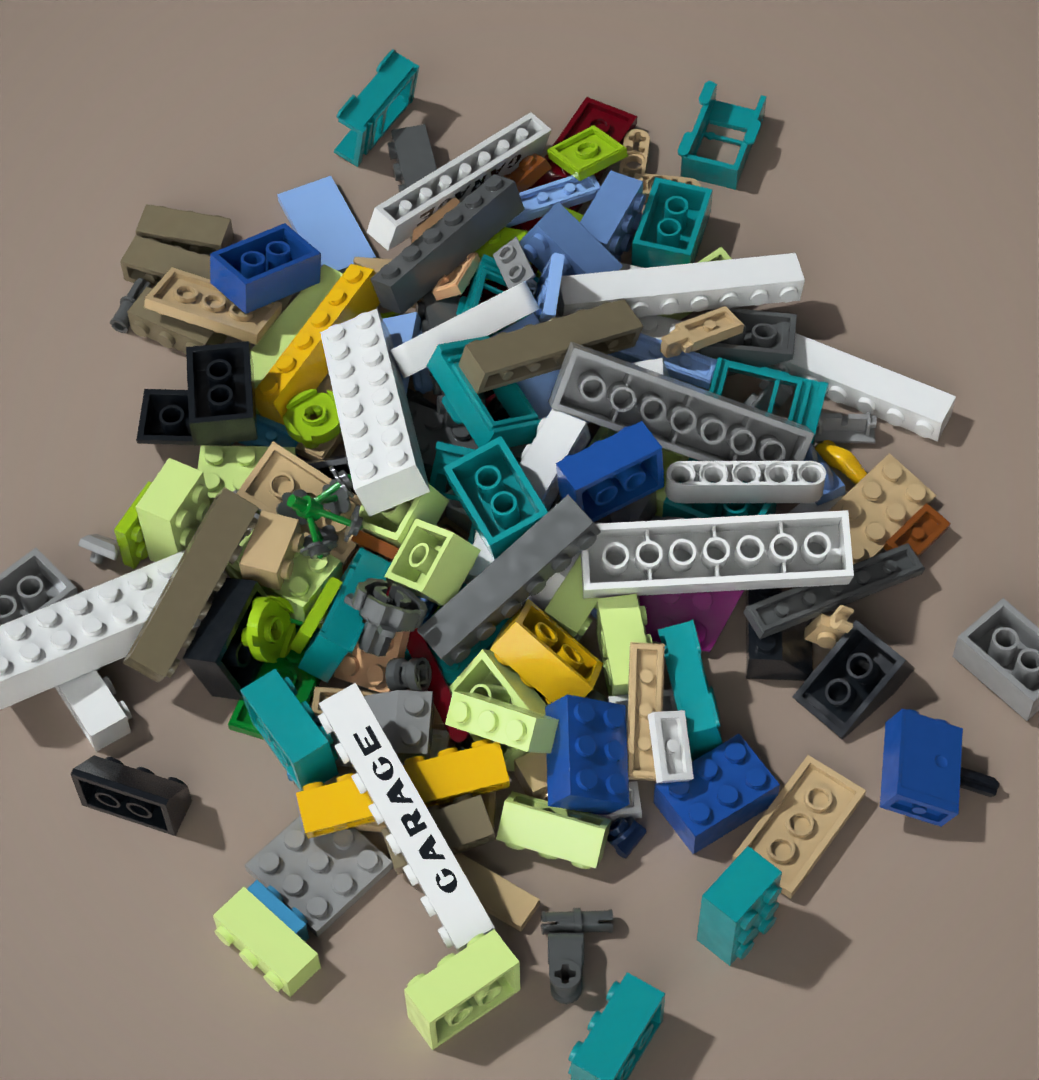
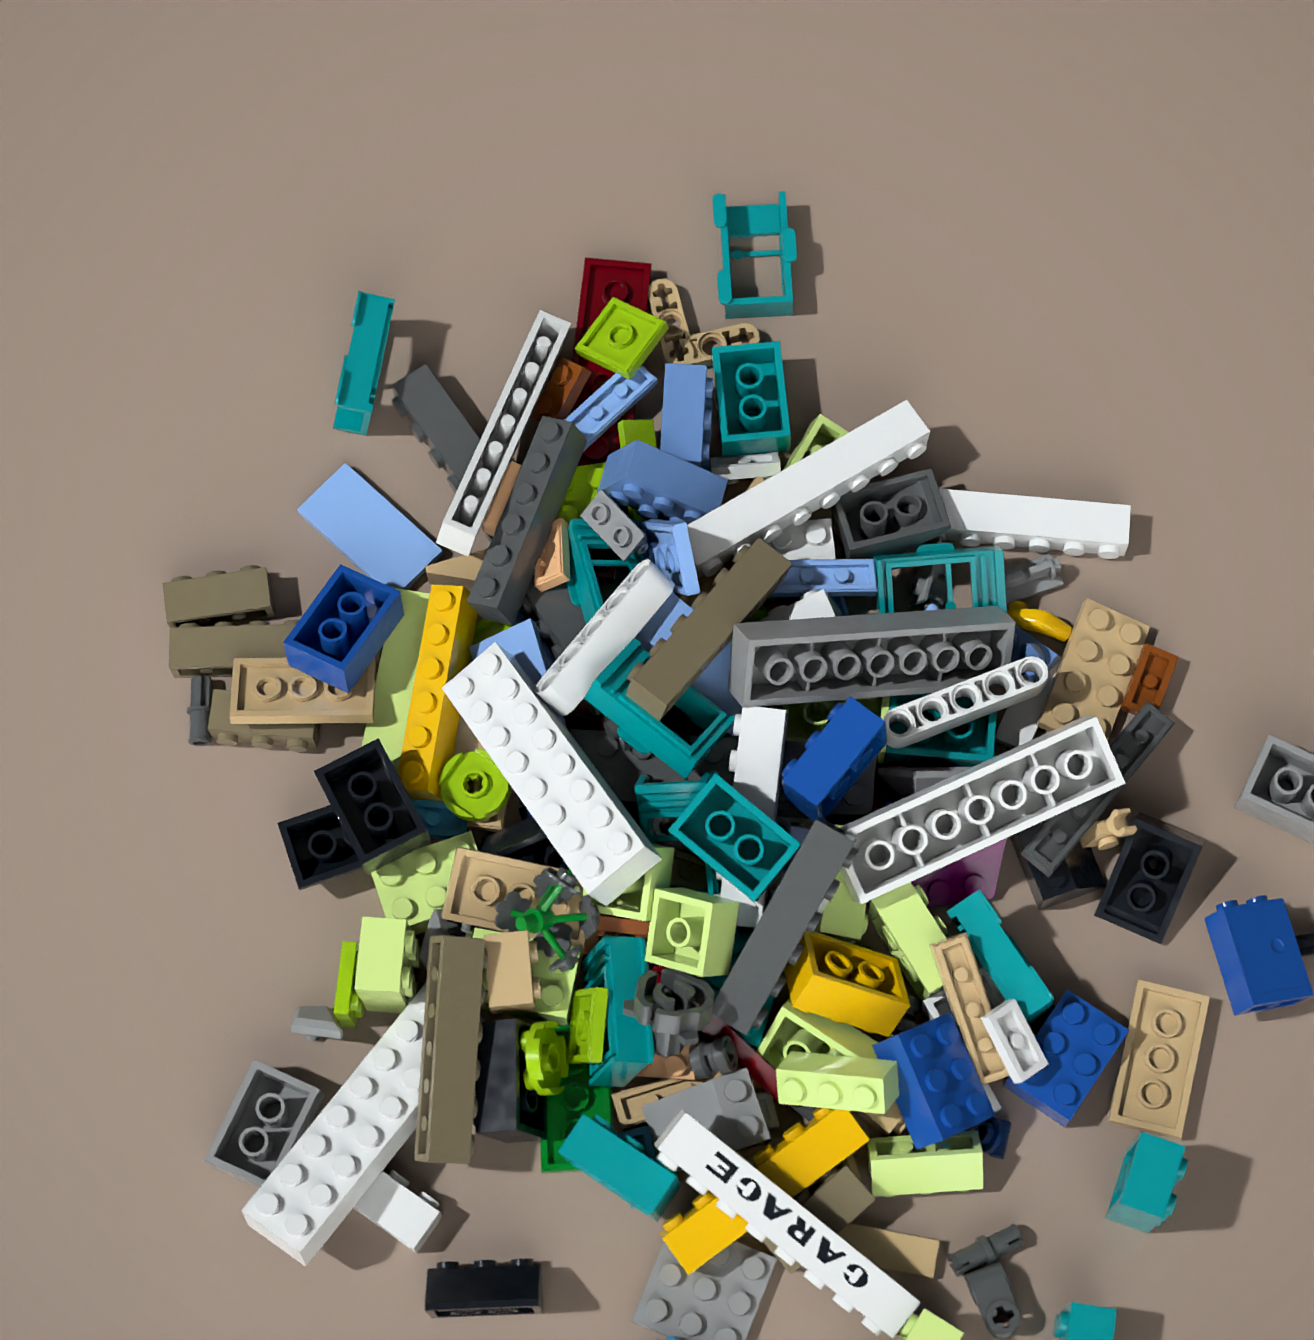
camera: 20 degrees left, 15 degrees up
(701, 332) = (848, 536): tan hinge -> none

